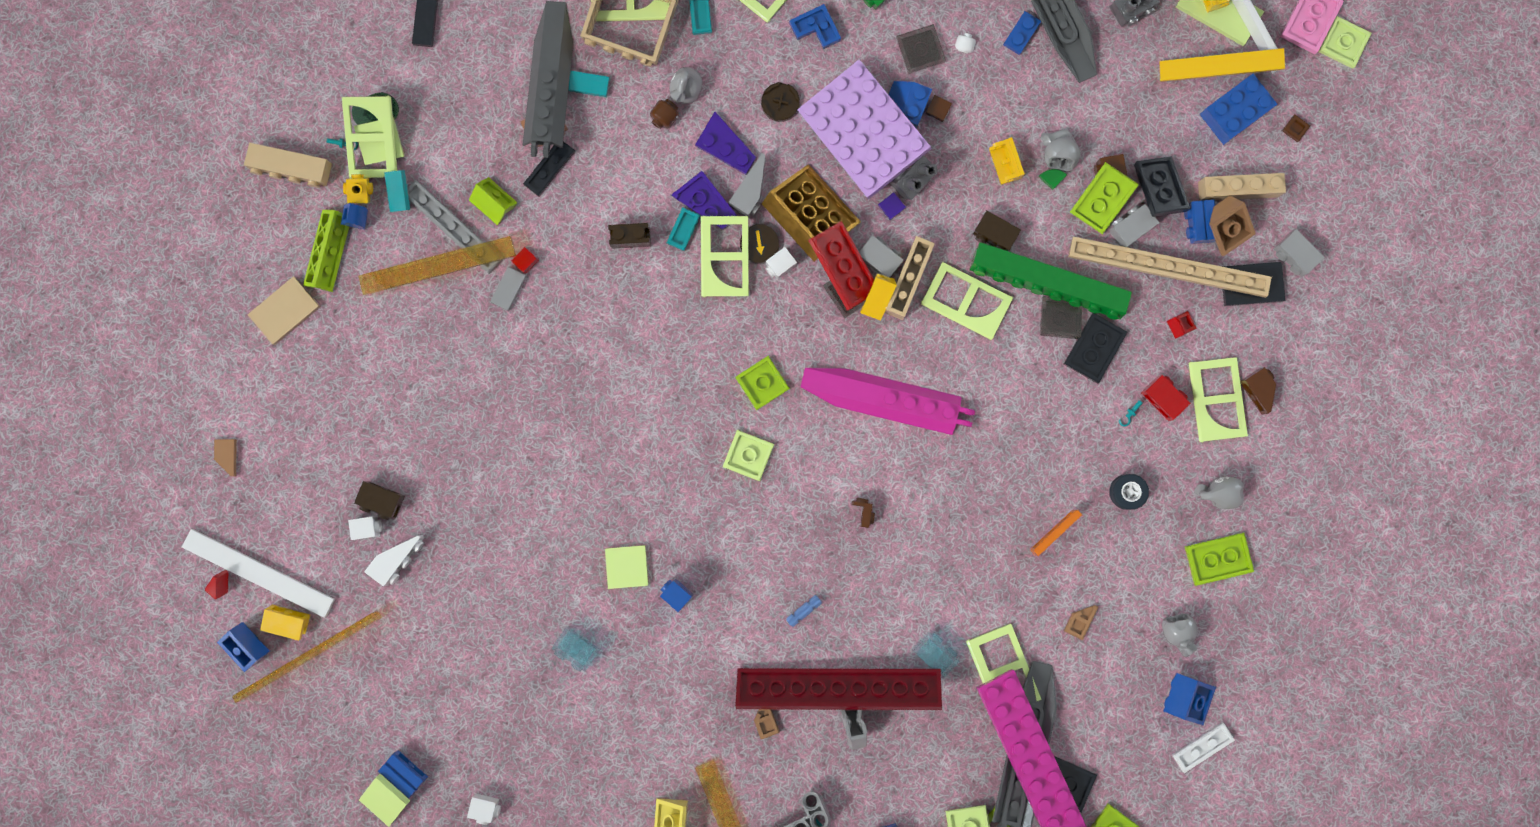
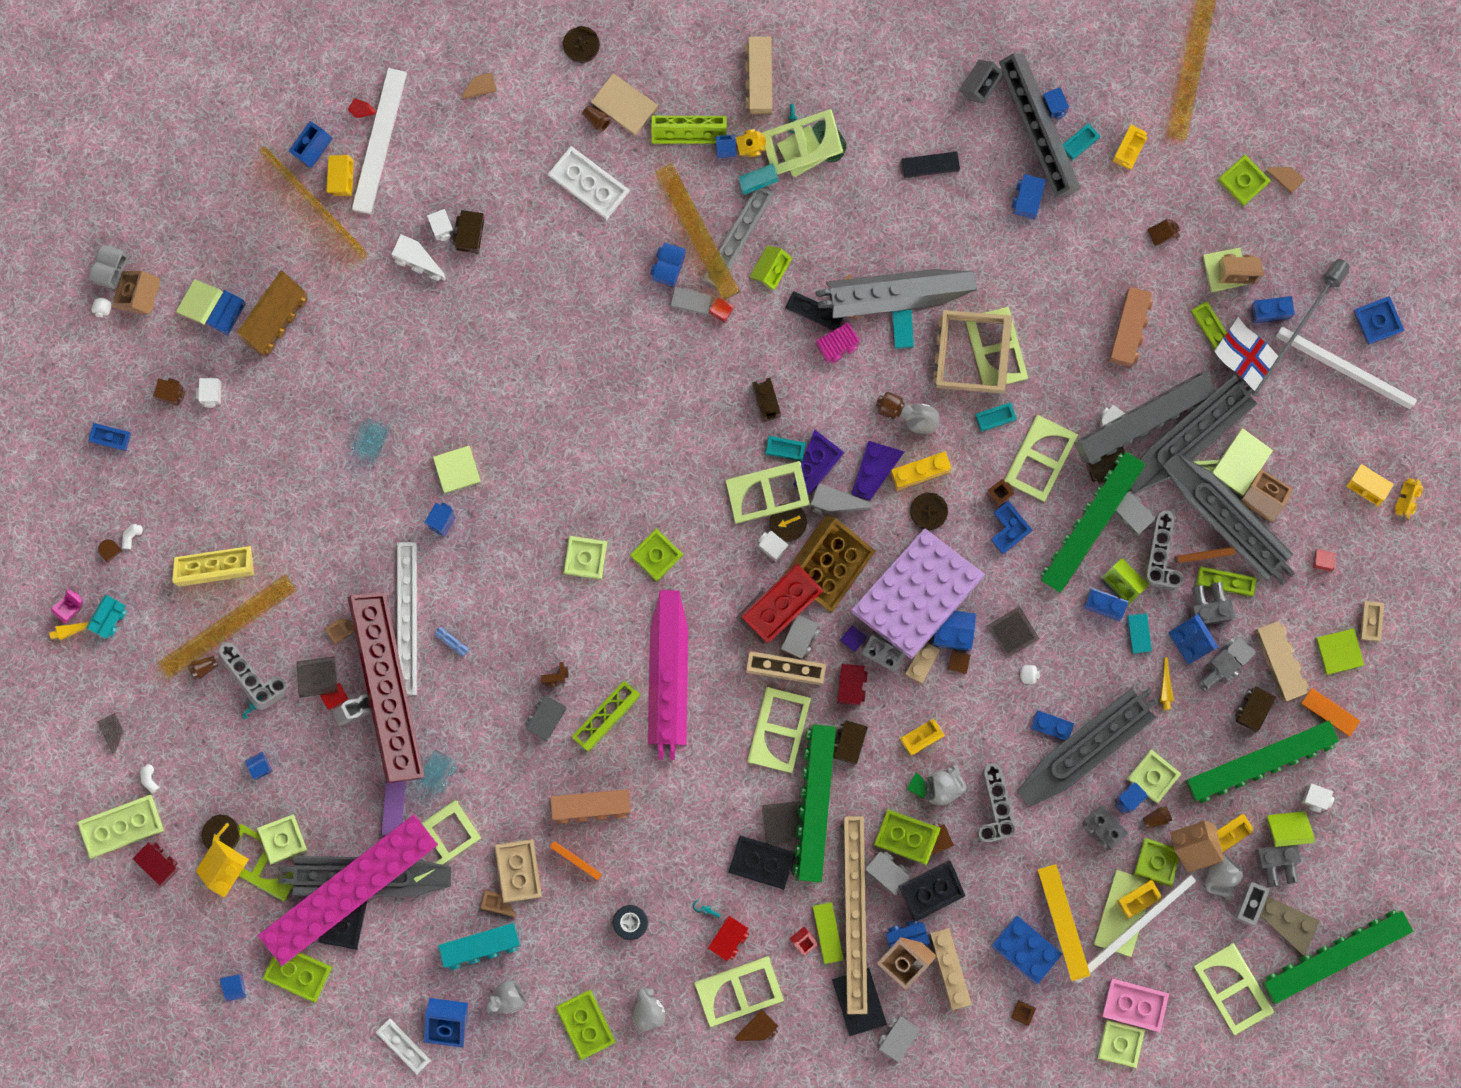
camera: 75 degrees right, 5 degrees down
(208, 341) = (581, 44): none -> dark brown tile
(291, 342) = (597, 119): none -> reddish brown cone
(357, 366) = (588, 182): none -> white tile
(416, 725) = (272, 314): none -> pearl gold slope
(464, 302) = (668, 264): none -> blue brick
(588, 151) = (838, 343): none -> dark pink brick
(739, 98) = (920, 471): none -> yellow brick
(764, 650) = (407, 613): none -> white tile
(780, 25) = (1000, 493): none -> reddish brown brick
(810, 757) = (317, 677): none -> clear smoke tile
(834, 744) = (334, 699): none -> red slope
(879, 297) = (761, 642): yellow hinge -> none
(904, 531) = (545, 718): none -> dark grey brick
(924, 469) = (611, 721): none -> lime fence
(939, 147) = (922, 663): none -> tan plate
(939, 218) = (851, 685): none -> dark red brick
(964, 707) = (393, 806): none -> medium lavender tile
(1003, 505) = (590, 805): none -> nougat brick
(1053, 593) = (518, 871): none -> tan tile
(1087, 106) = (994, 801): none -> light grey beam
(1120, 648) = (479, 945): none -> teal brick
(1179, 298) = (828, 933): none -> lime tile

